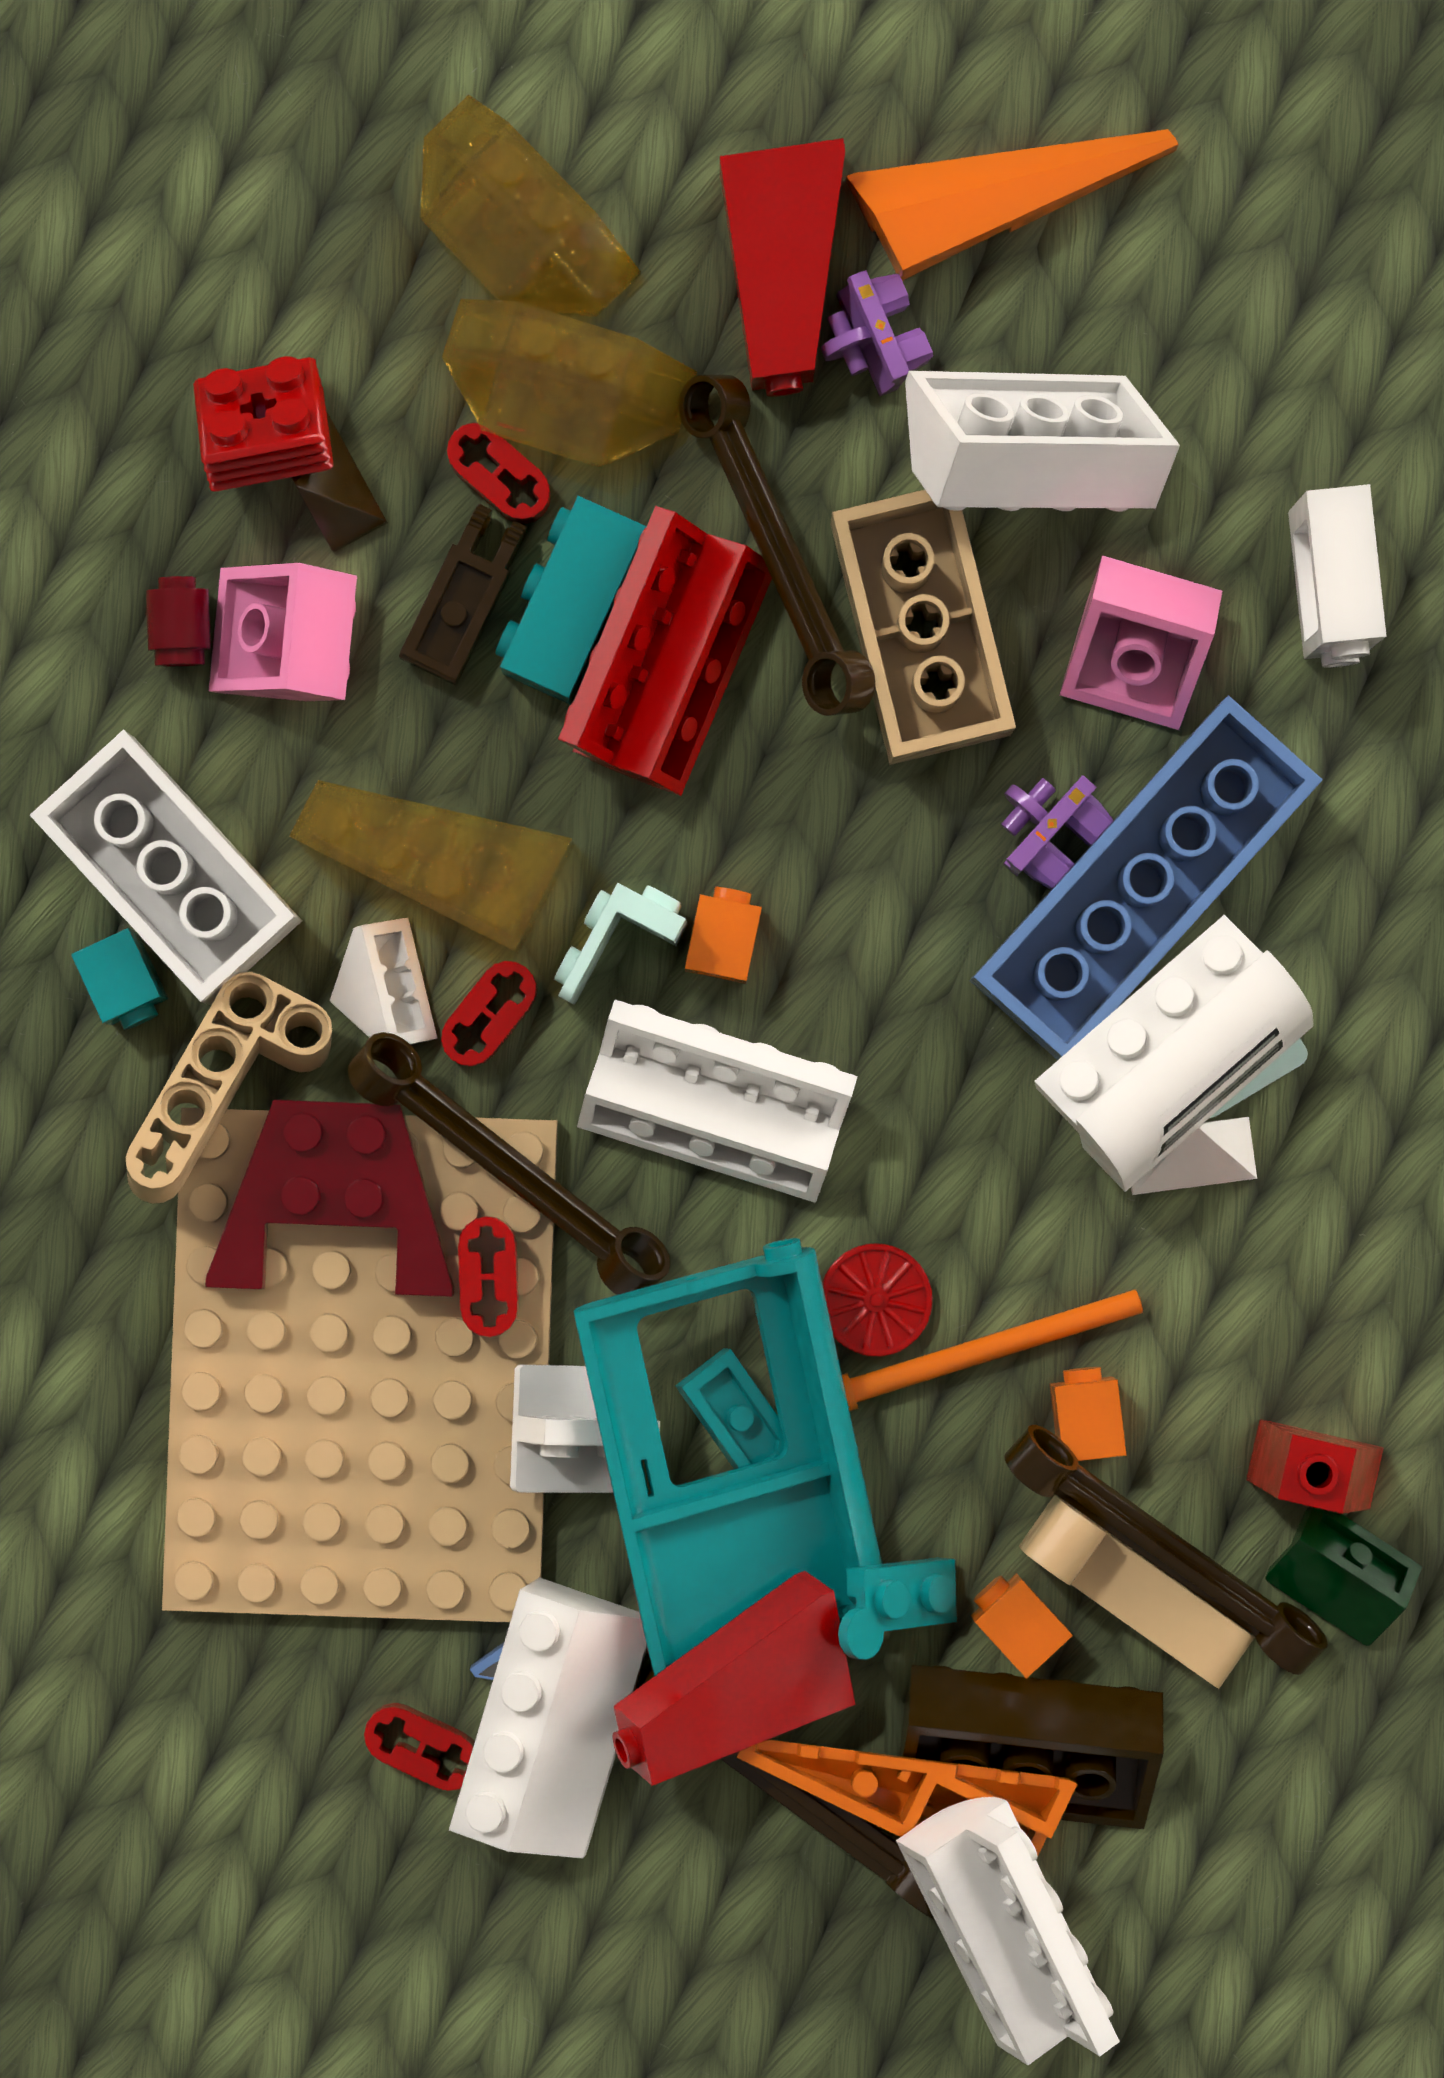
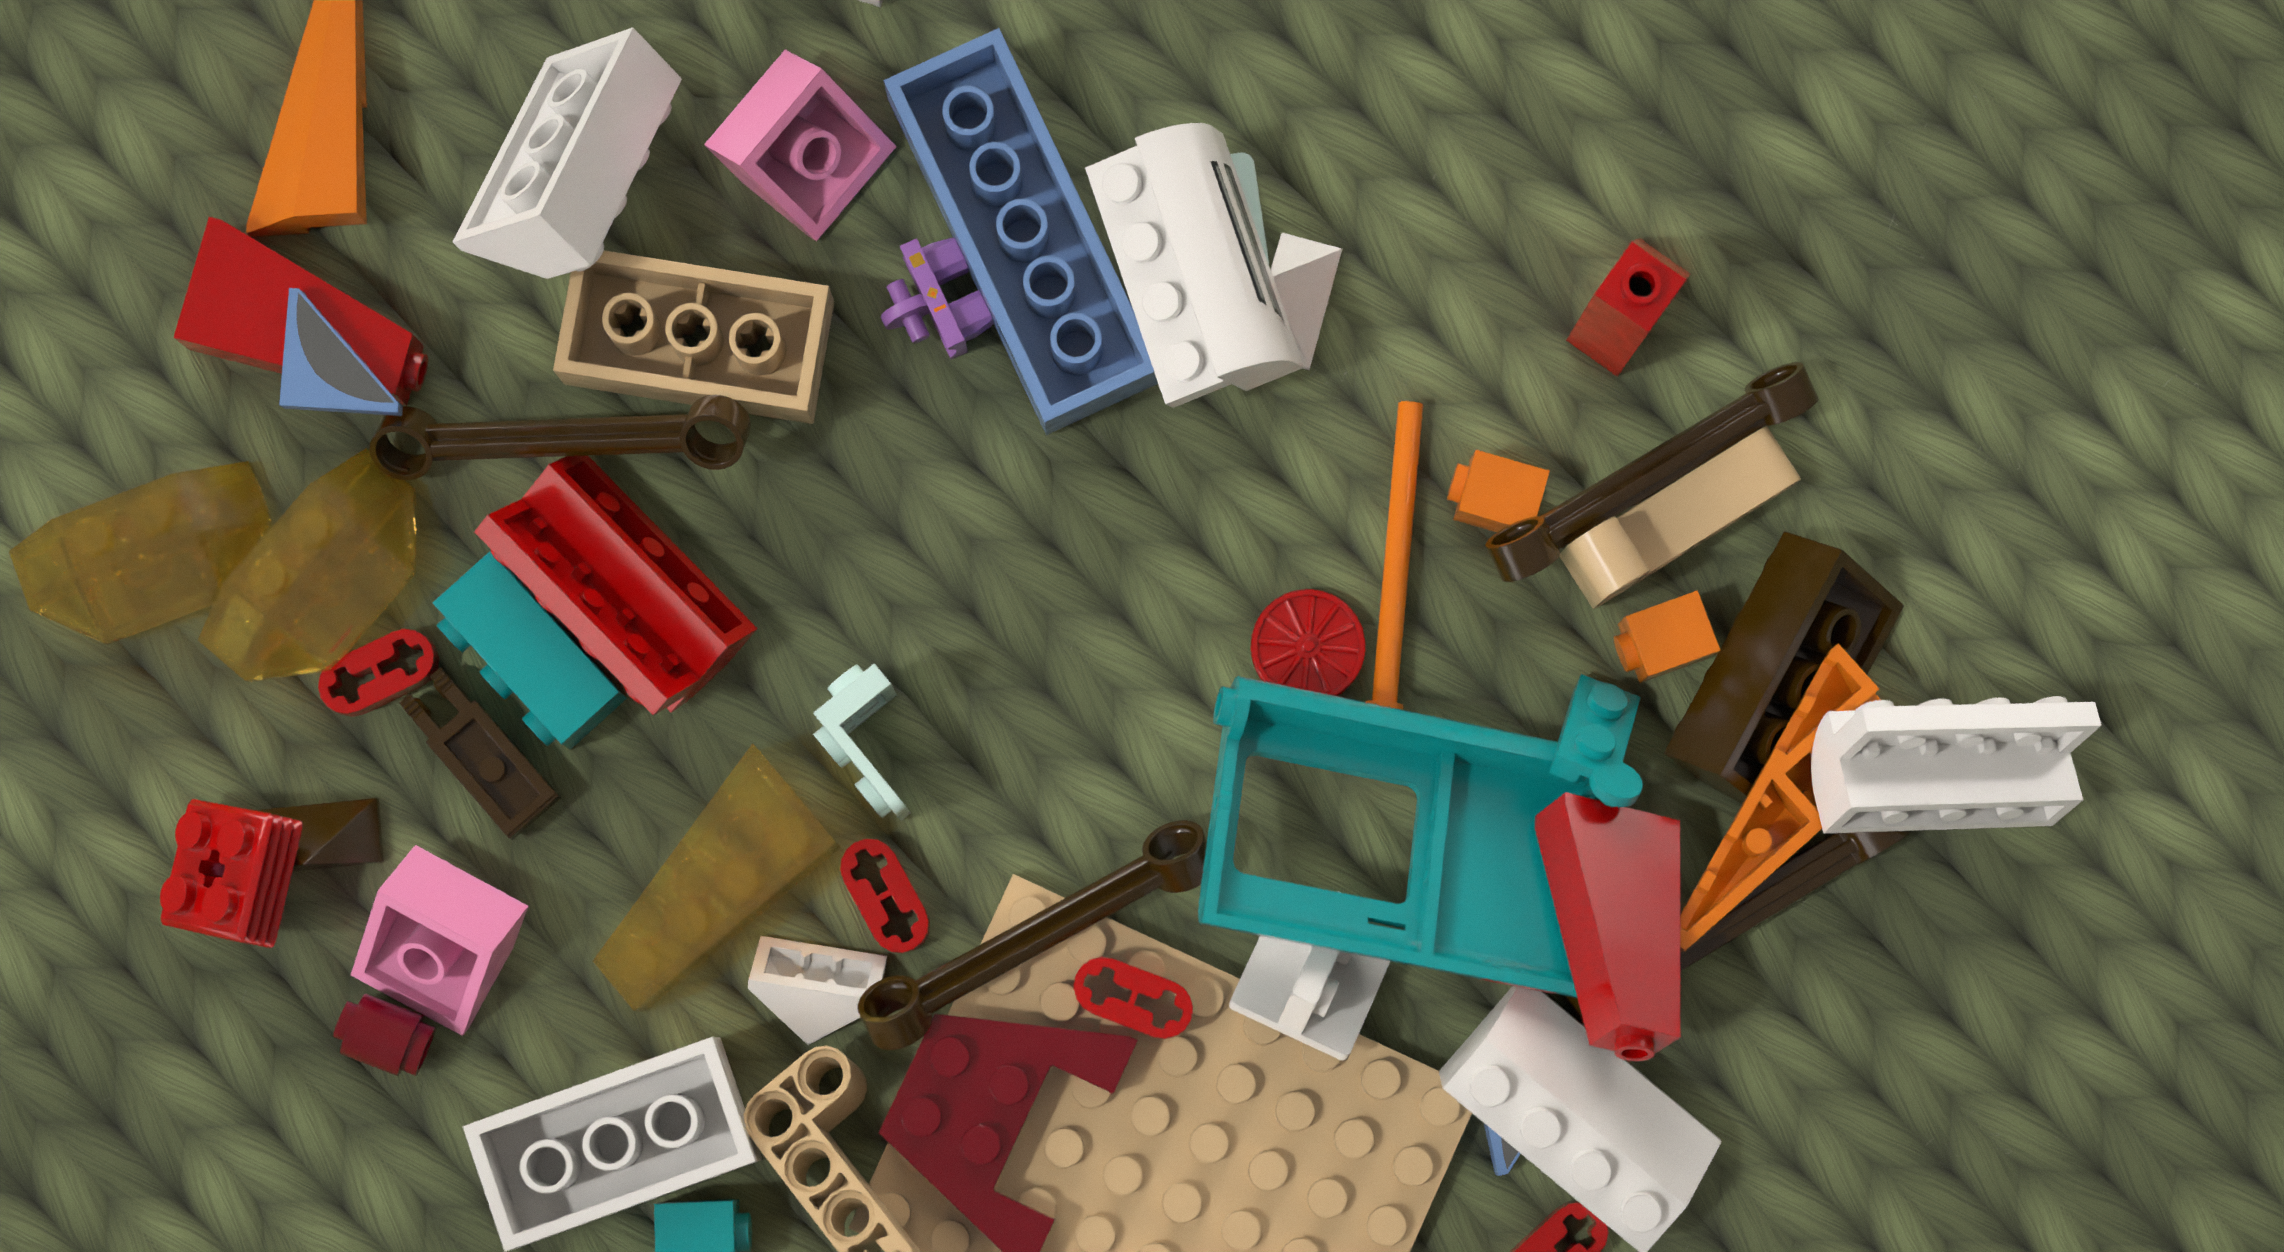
camera: 70 degrees left, 5 degrees down
(716, 1100) = (1058, 713): white brick -> none
(723, 935) = (906, 643): orange brick -> none
(733, 1410) = (1356, 821): teal hinge -> none
(747, 305) = (324, 370): none -> tile
(866, 336) = (403, 274): medium lavender hips -> none
(1345, 1574) = (1742, 321): dark green panel -> none

